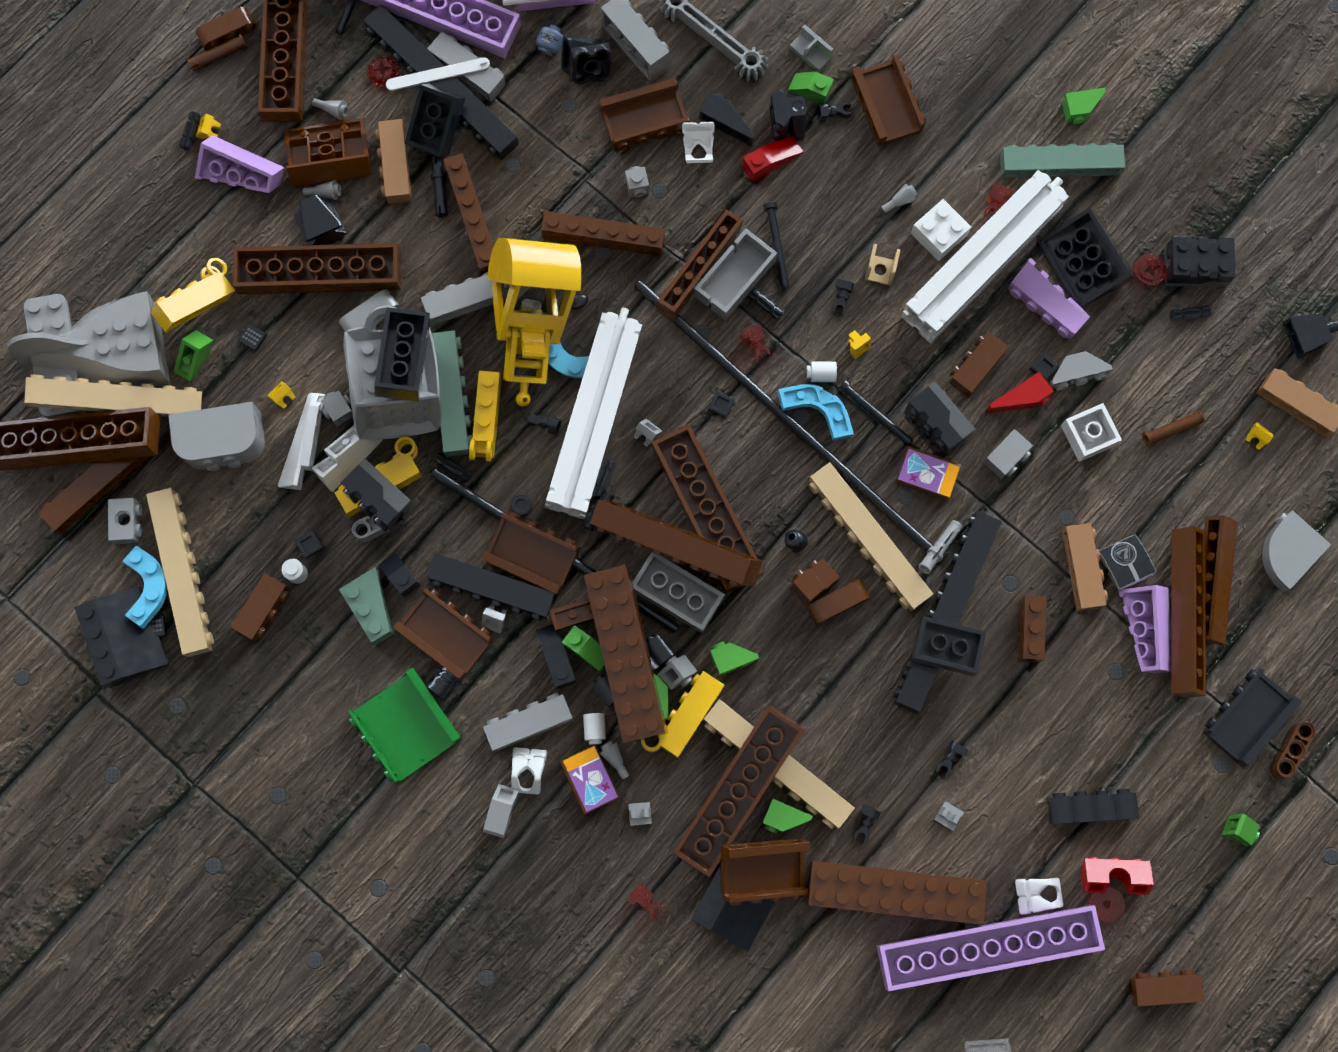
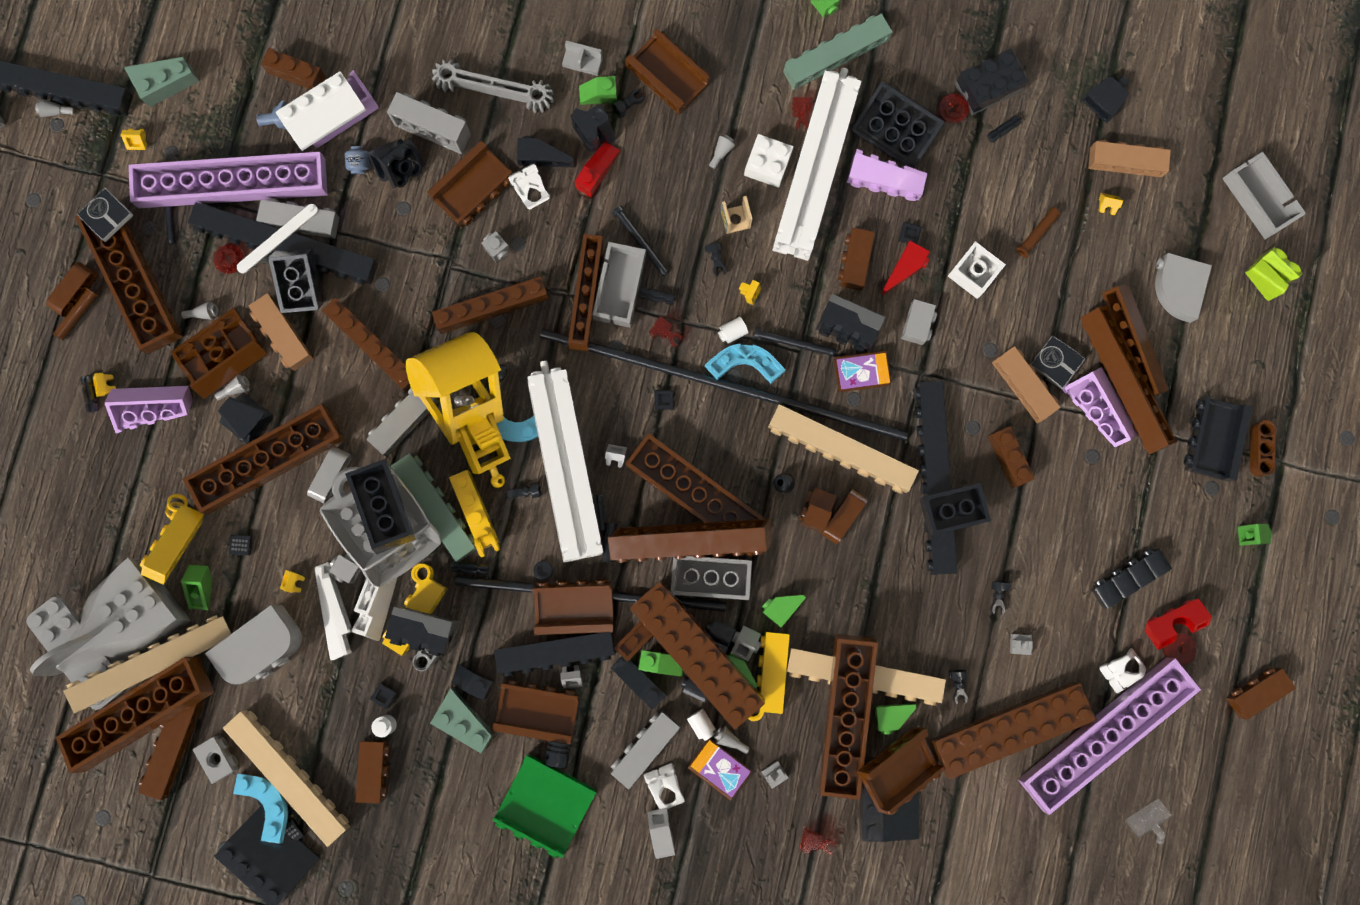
camera: 30 degrees left, 5 degrees up
(438, 178) = (326, 328): black pin -> none
(936, 552) = (903, 435): light grey pin -> none
(1078, 370) = (939, 222): light grey slope -> none

